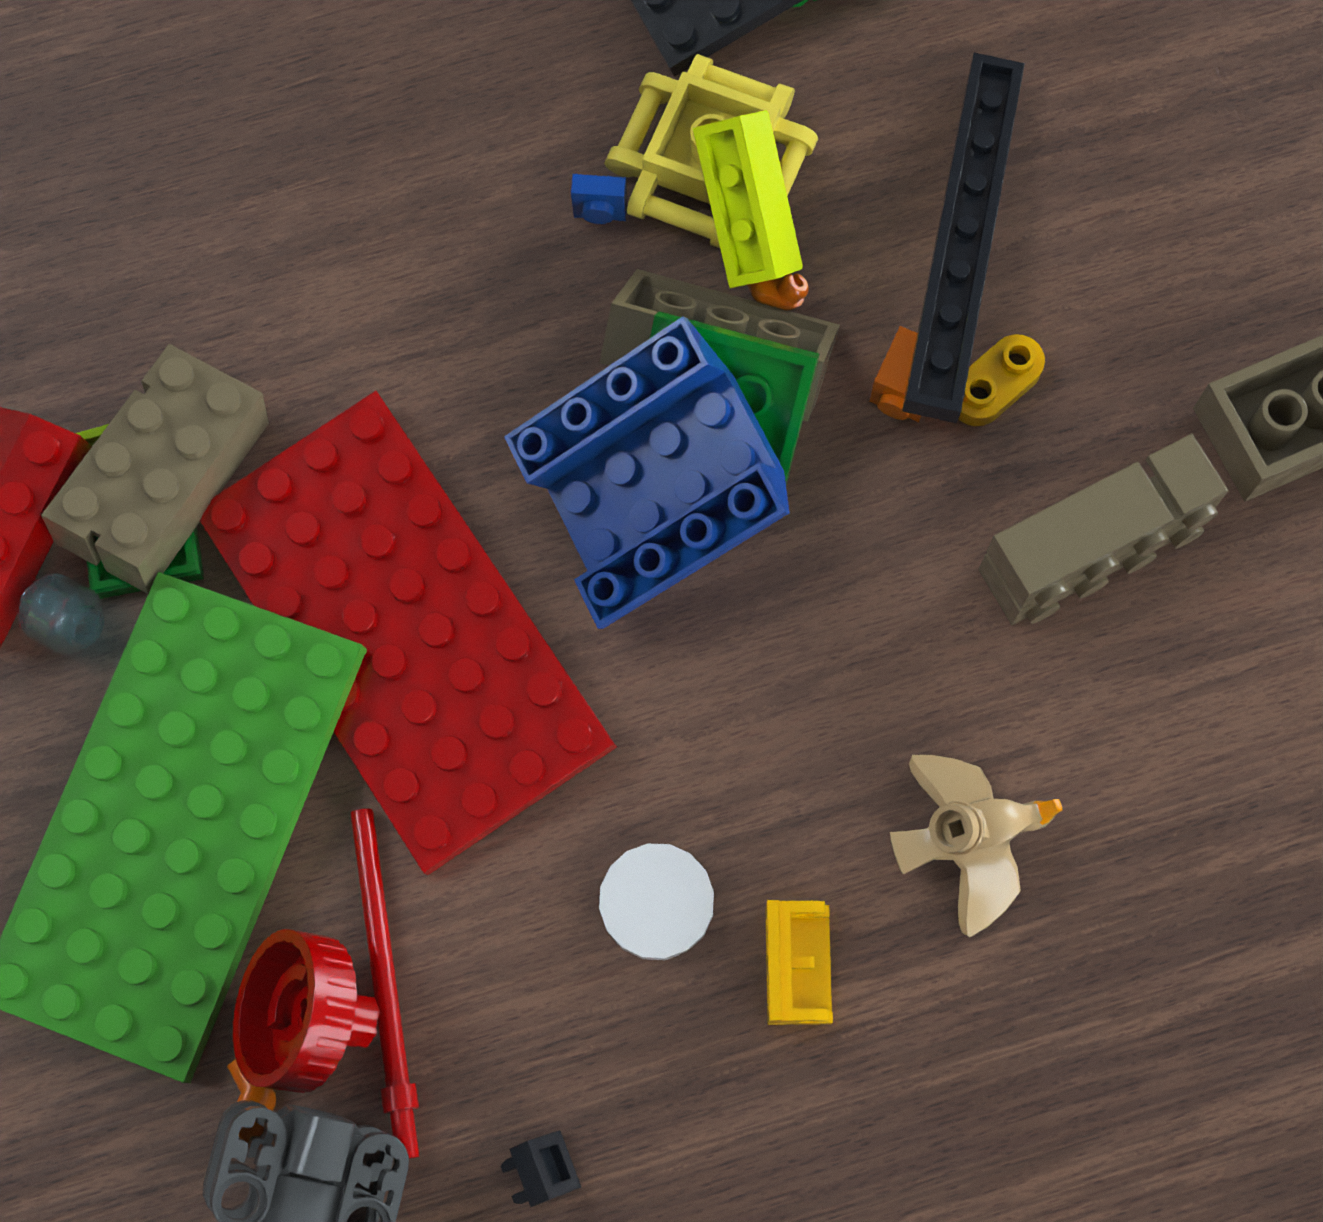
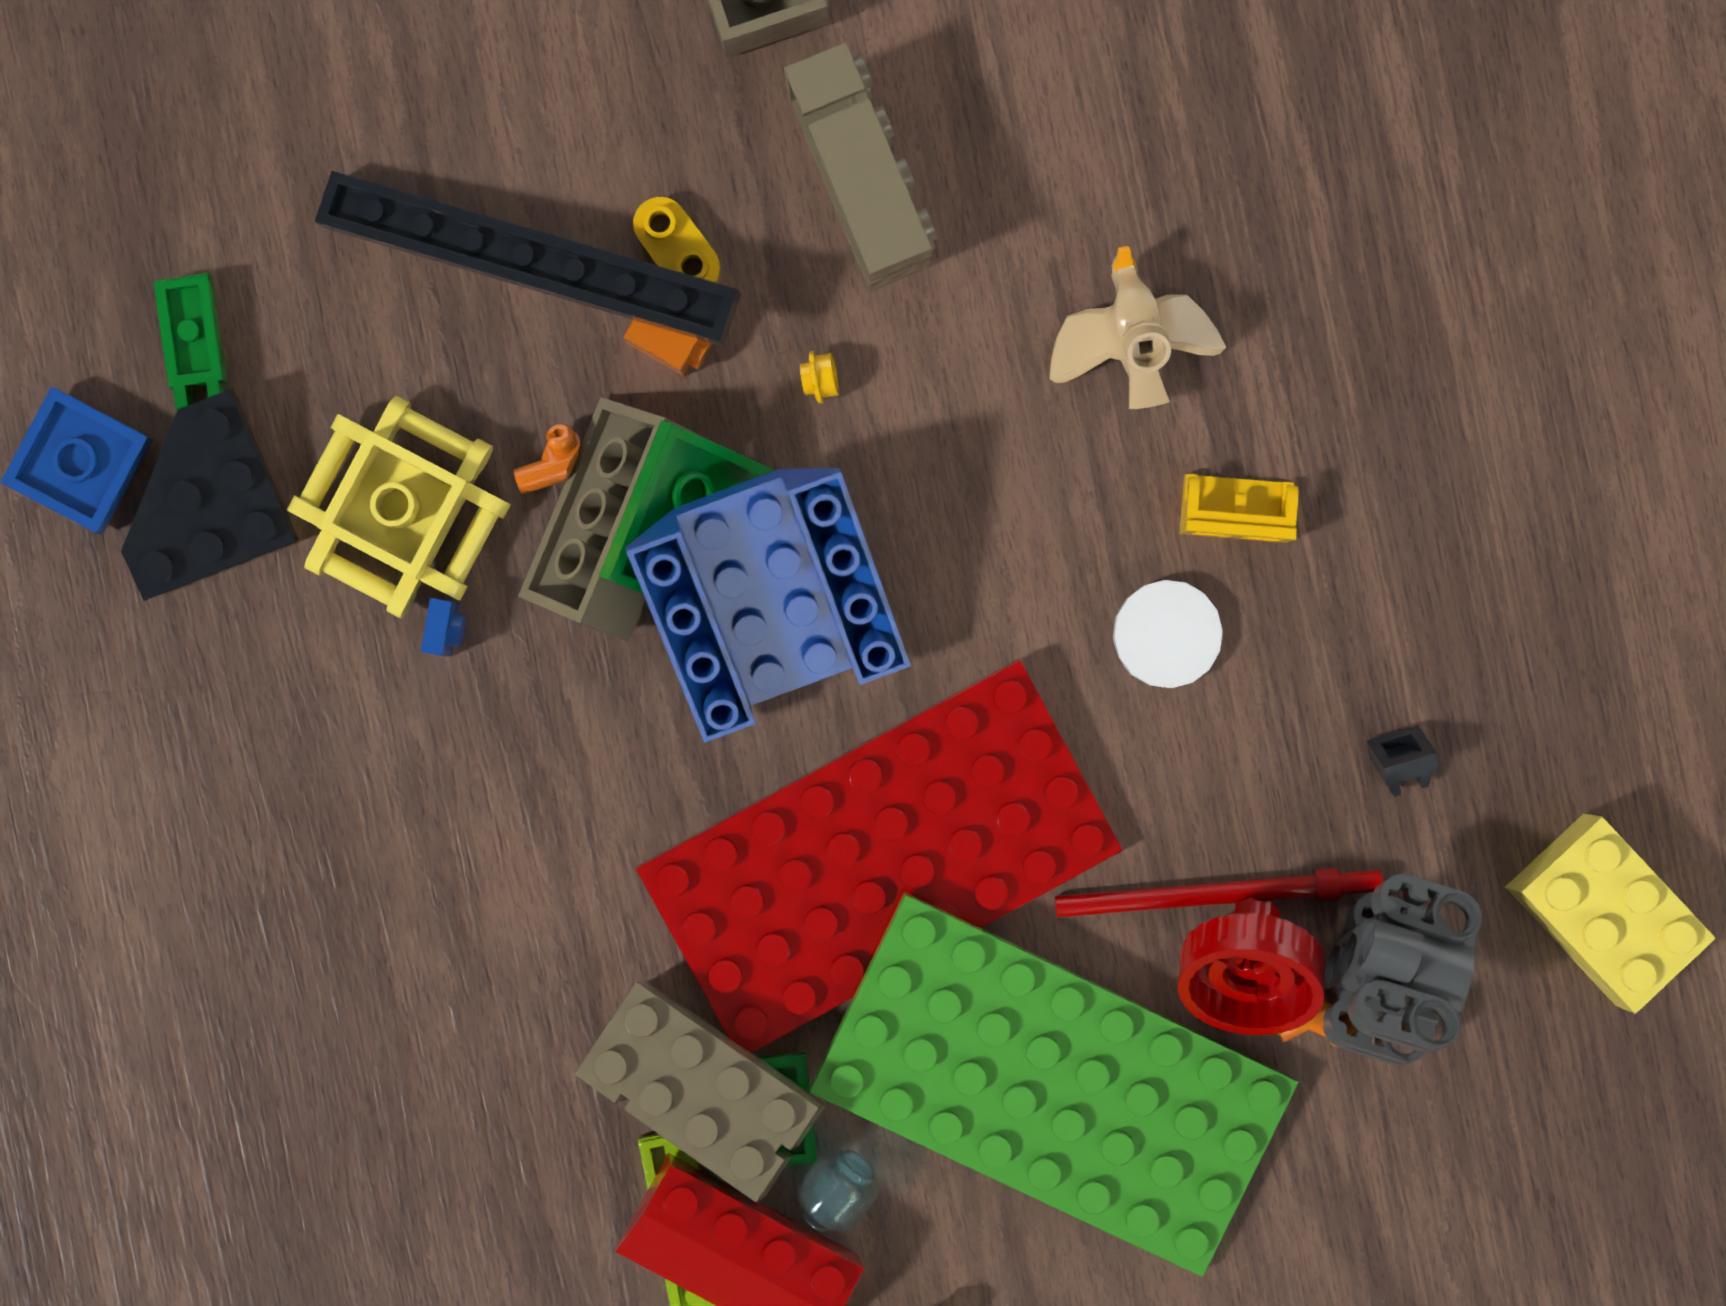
camera: 90 degrees left, 15 degrees up
(748, 199) = (473, 473): neon yellow panel -> none
(885, 524) = (819, 376): none -> yellow plate

